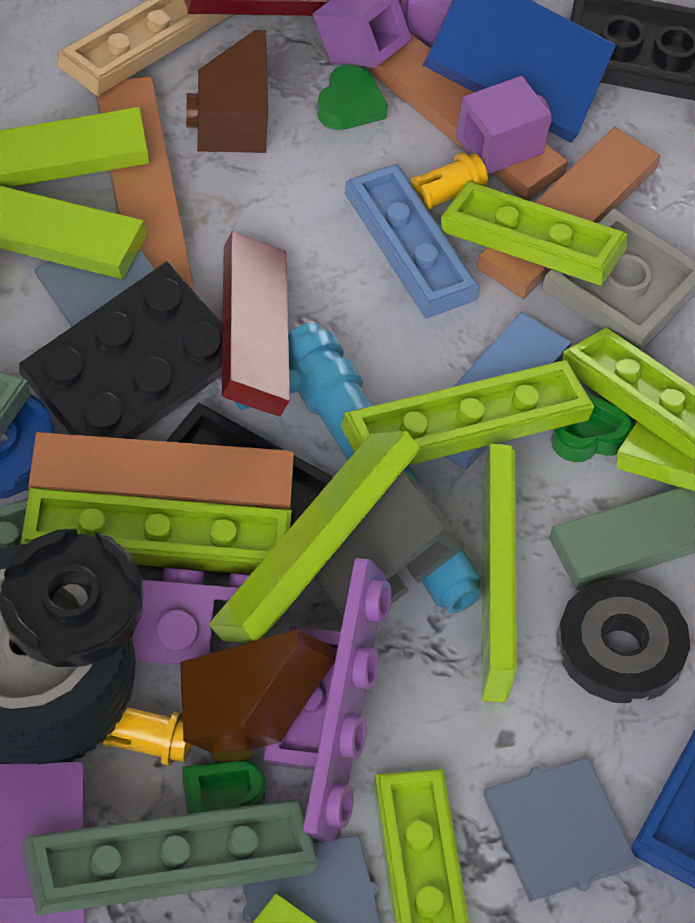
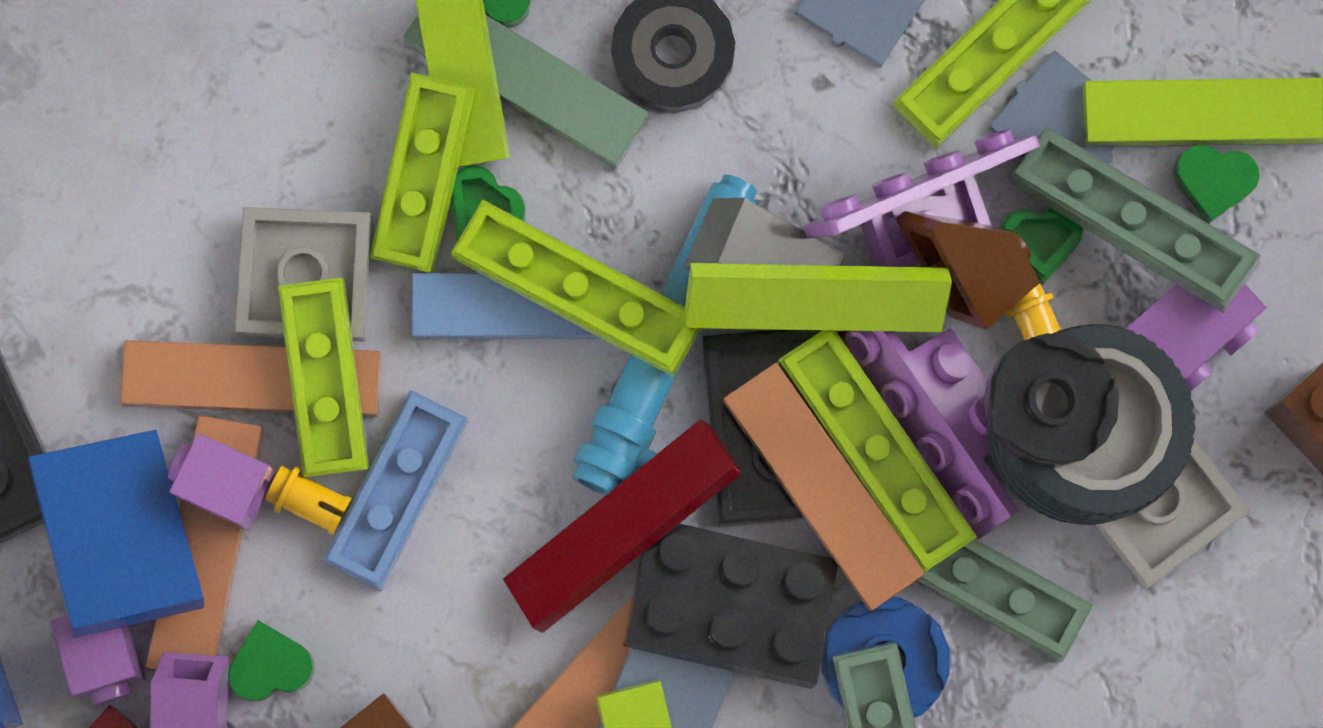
camera: 125 degrees left, 25 degrees up
(499, 574) = (695, 173): lime tile -> none

